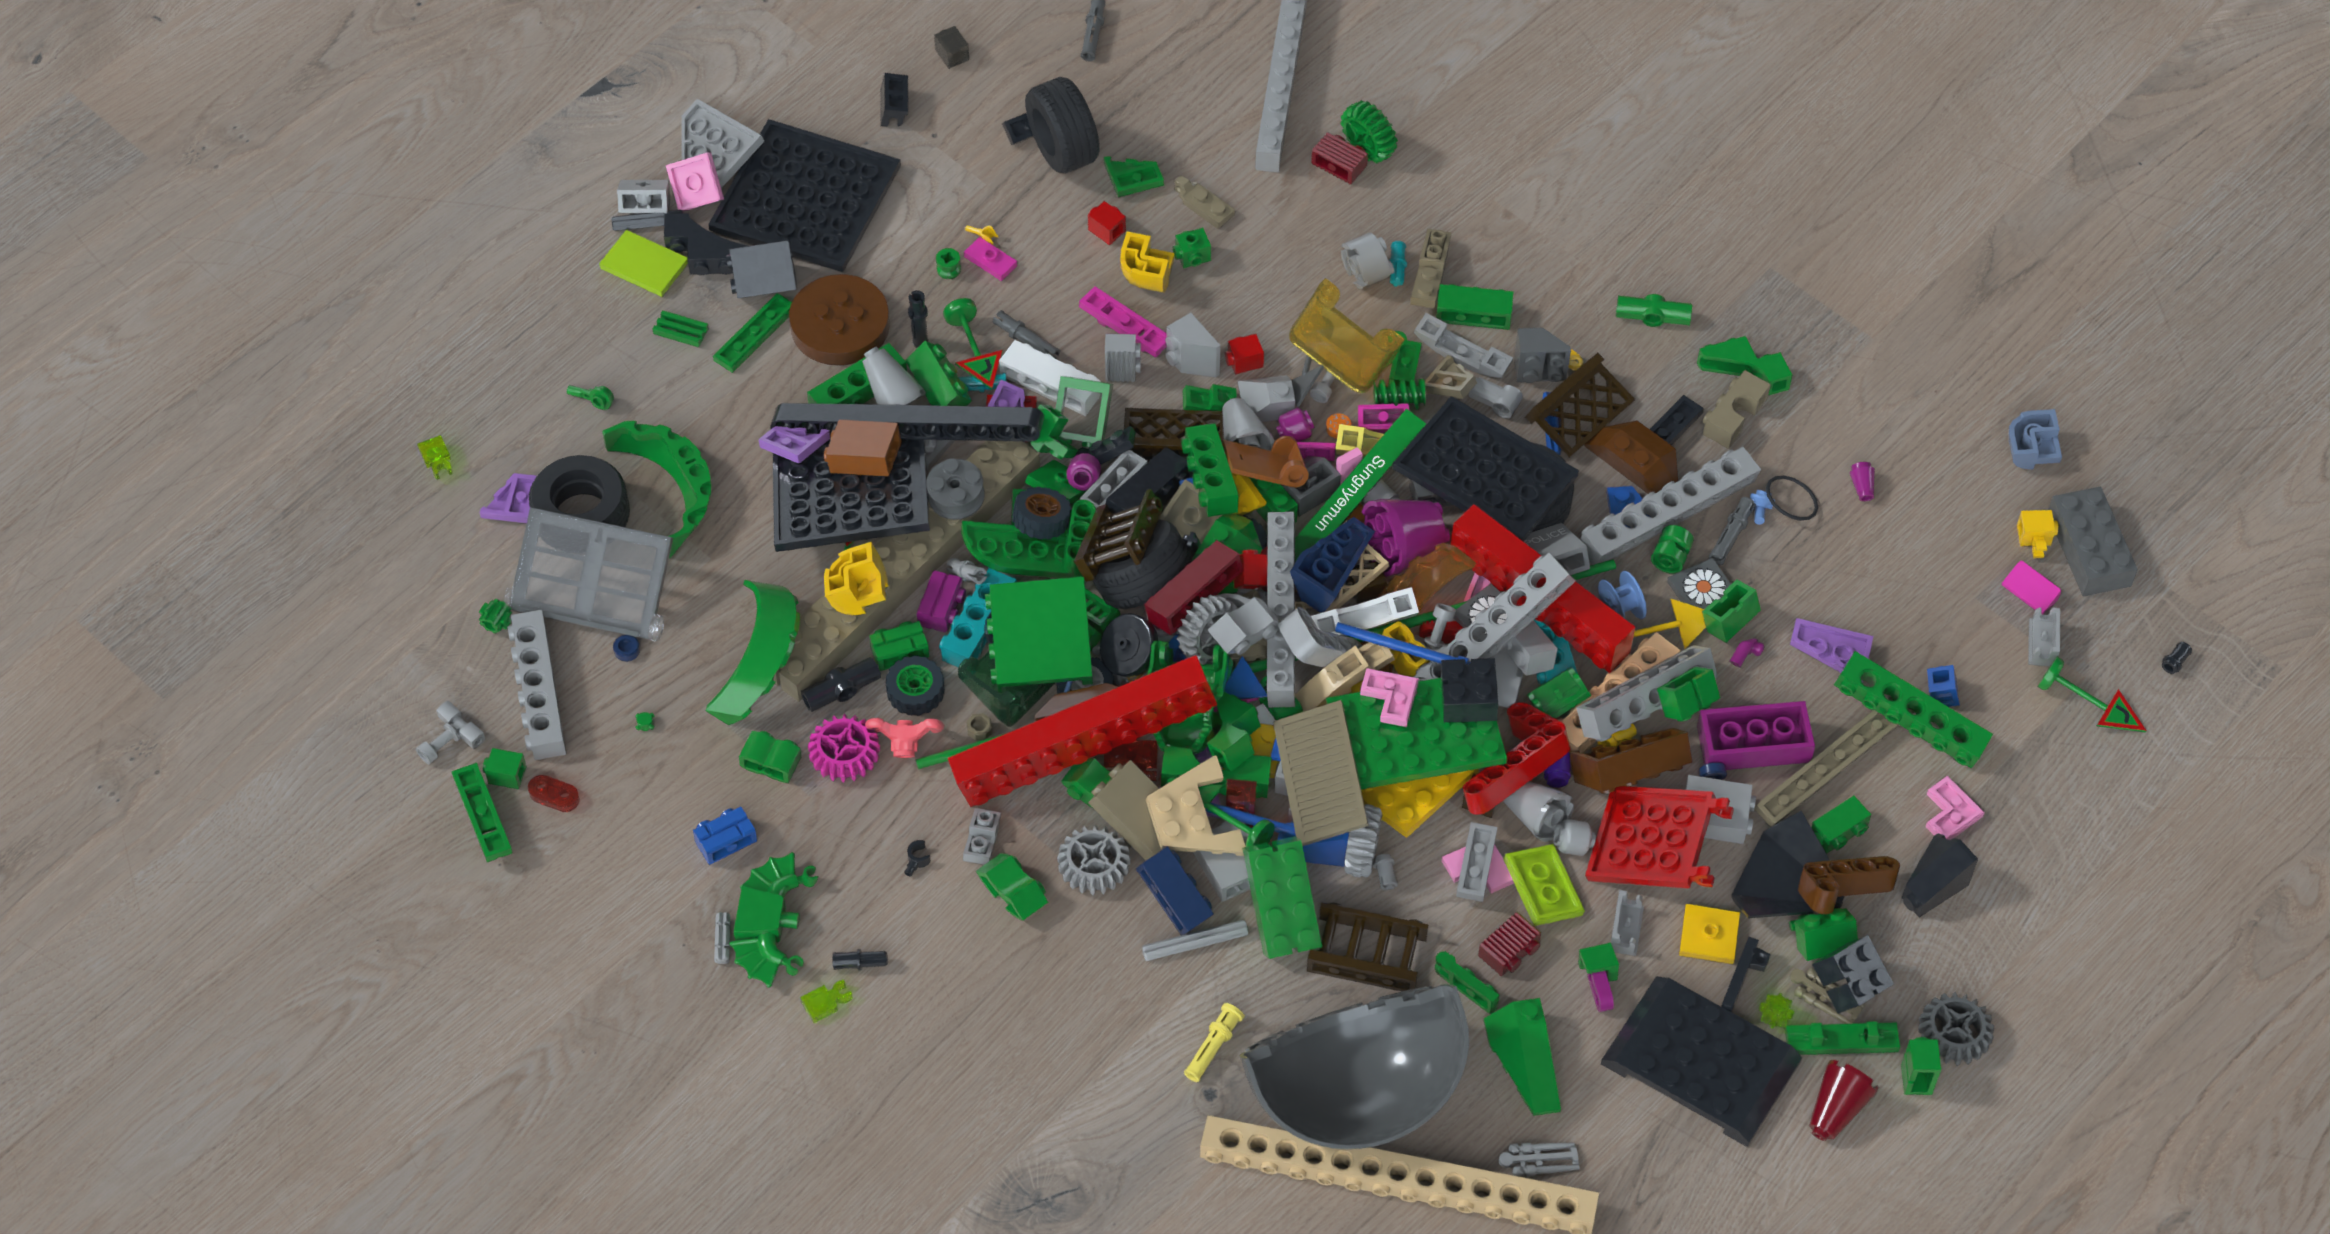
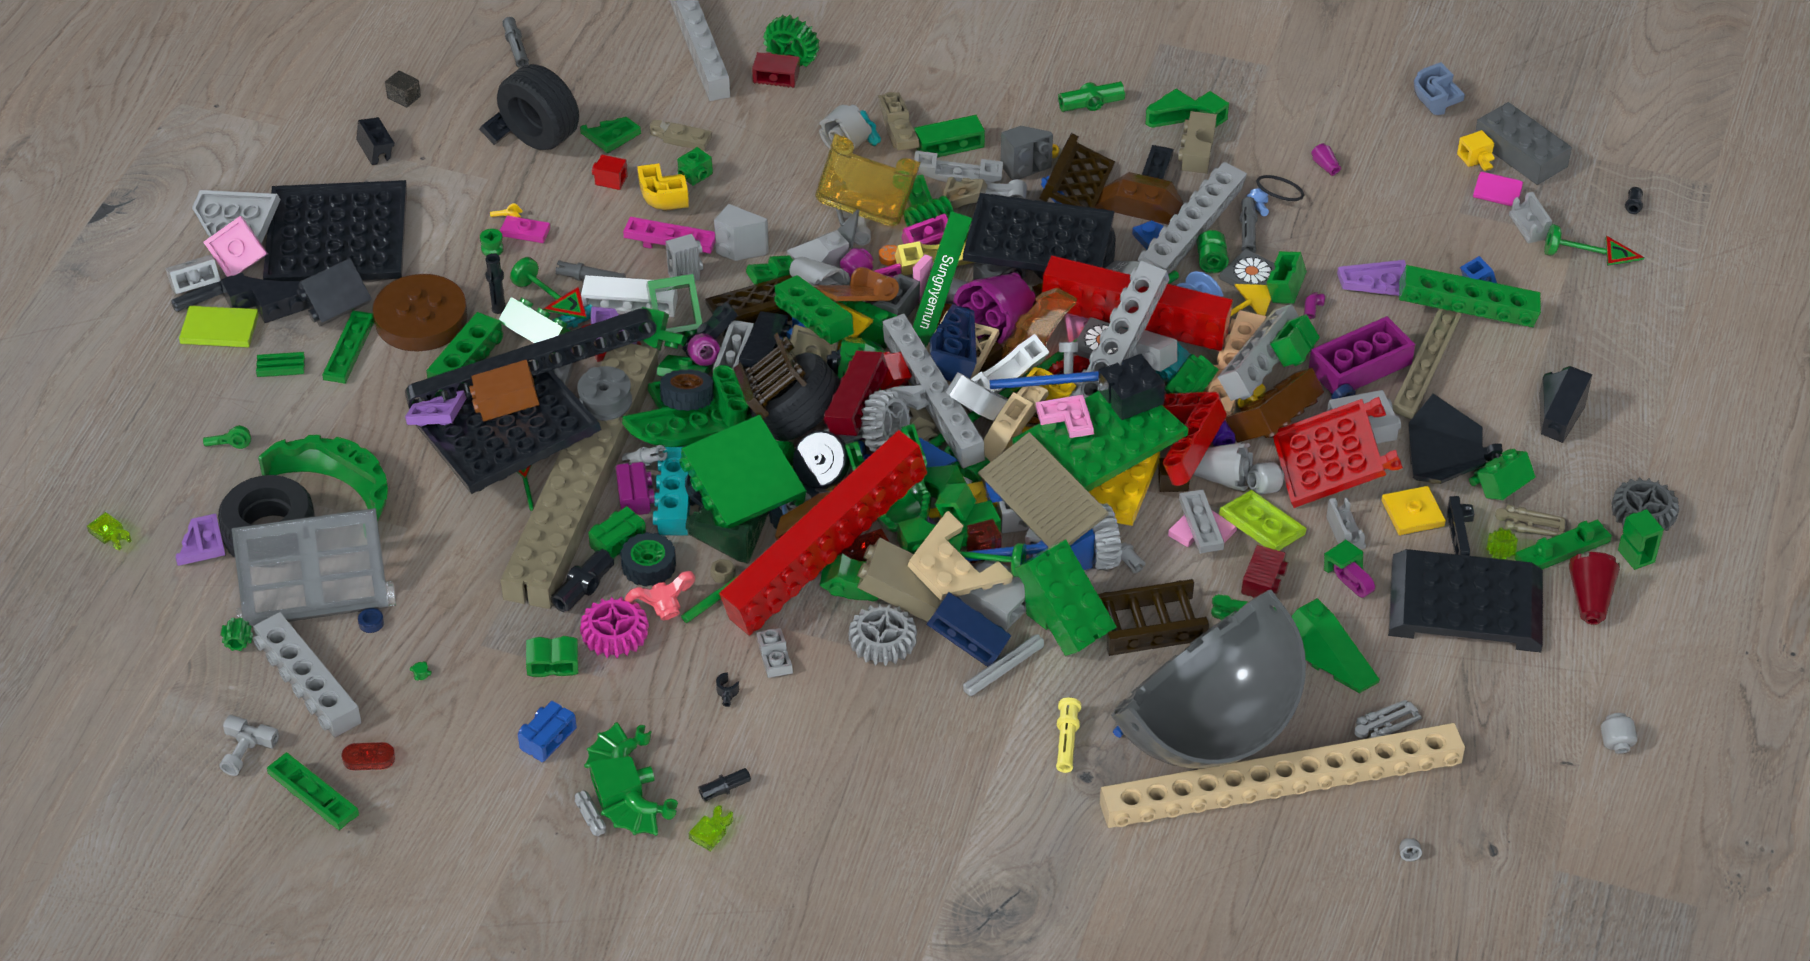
camera: 25 degrees left, 10 degrees down
(504, 768) = (313, 750): green brick -> none
(766, 653) = (510, 572): green windscreen -> none
(856, 580) = (560, 486): yellow brick -> none
(889, 380) = (496, 334): light grey cone -> none
(1006, 879) = (825, 678): green brick -> none
(1245, 354) = (784, 227): red brick -> none
(1245, 626) = (920, 403): light grey brick -> none
(1827, 880) = (1488, 434): reddish brown beam -> none
(1841, 824) = (1467, 393): green brick -> none
(1861, 968) = (1548, 481): black piece -> none
(1958, 809) = (1542, 357): bright pink tile -> none

